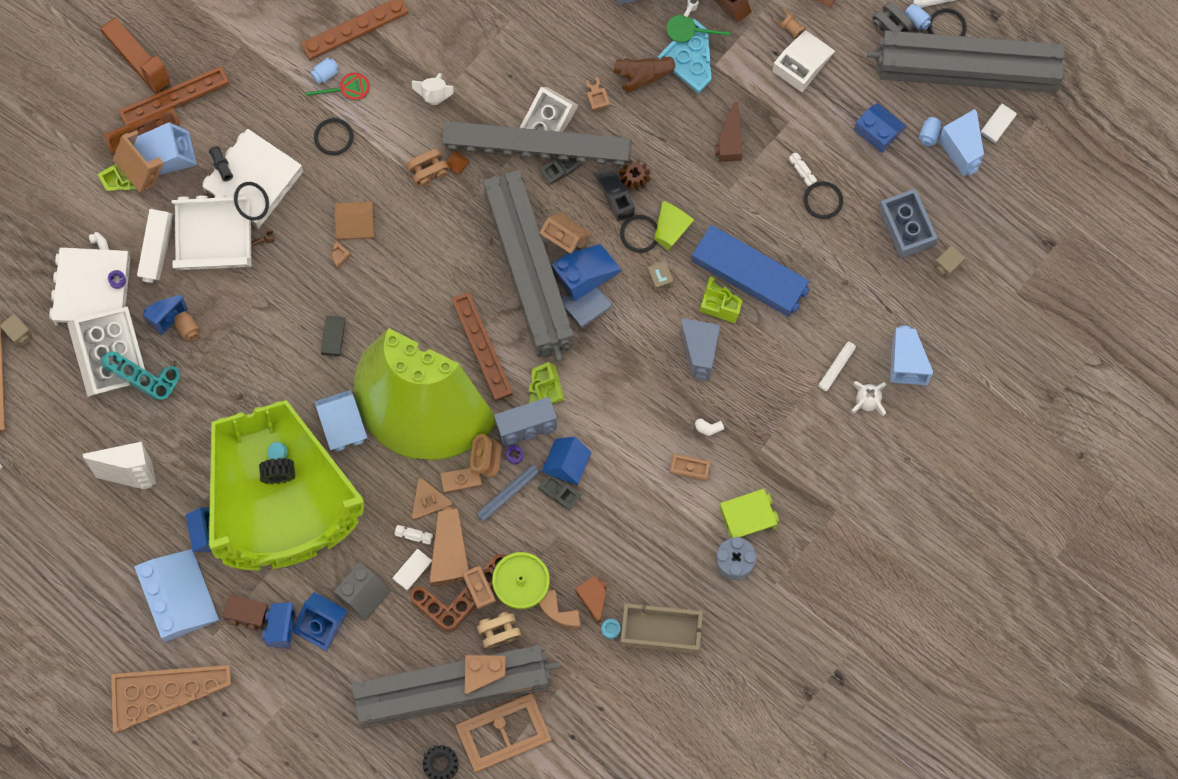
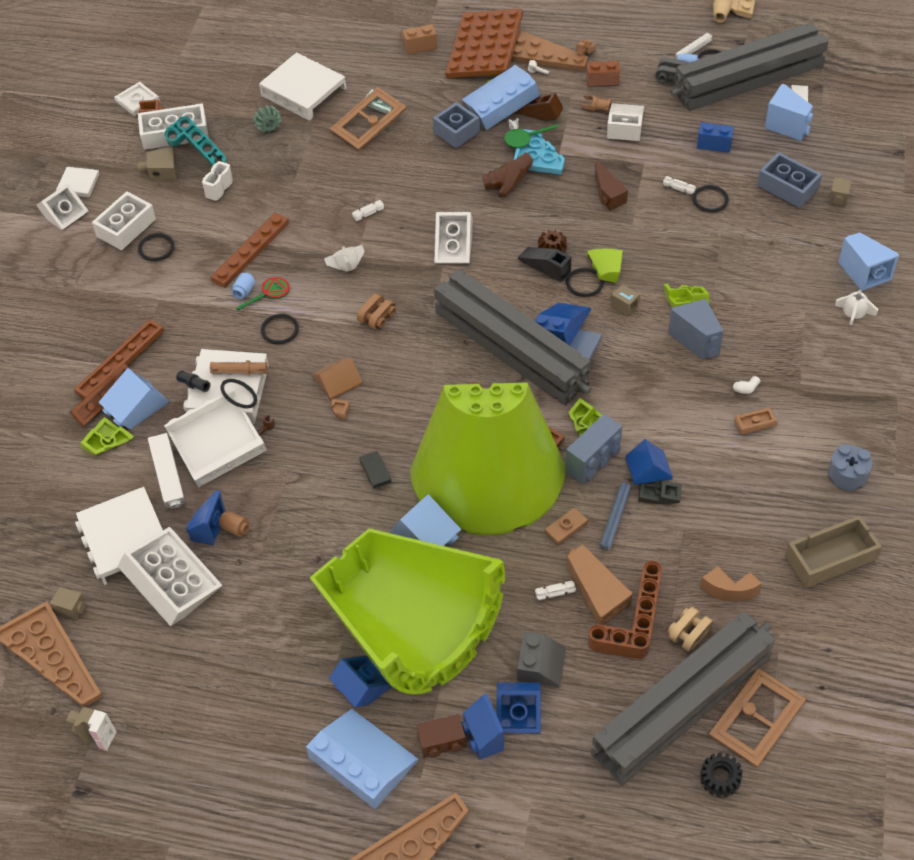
camera: 25 degrees left, 20 degrees down
(100, 240) = (108, 494): white arm -> none
(121, 284) = (144, 516): dark purple bush -> none
(123, 465) = (243, 656): white slope -> none
(134, 166) = (114, 415): medium nougat panel -> none
(136, 373) = (185, 576): teal beam -> none
(148, 68) = (87, 347): dark orange beam -> none
(273, 173) = (239, 367): none -> medium nougat pin
(277, 450) = (384, 581): medium azure tile -> none
(277, 471) = (396, 593): black tyre -> none
(412, 570) = (574, 620): white tile -> none
(428, 500) = (547, 557): medium nougat piece -> none
(457, 162) = (399, 299): dark orange slope -> none
(478, 587) = (650, 596): medium nougat plate -> none
(483, 670) = (709, 658): medium nougat wing -> none
(485, 455) = (576, 493): medium nougat brick -> none
(488, 39) = (368, 210): none -> white axle
(517, 449) = (600, 489): dark purple bush -> none
(521, 580) = (683, 572): lime piece -> none
(537, 142) = (458, 252): dark grey brick -> none
(559, 169) = (488, 265): pearl dark grey slope -> none
(565, 232) = (528, 297): medium nougat panel -> none
(593, 596) = (754, 559): dark orange slope -> none
(597, 97) = (482, 208): medium nougat plate -> none
(611, 628) = (786, 578): medium azure tile -> none
(748, 514) = (831, 430): lime panel -> none
(750, 271) = (694, 264): blue brick -> none
(837, 366) = (813, 298): white axle -> none
(930, 131) = (755, 121): light blue brick -> none

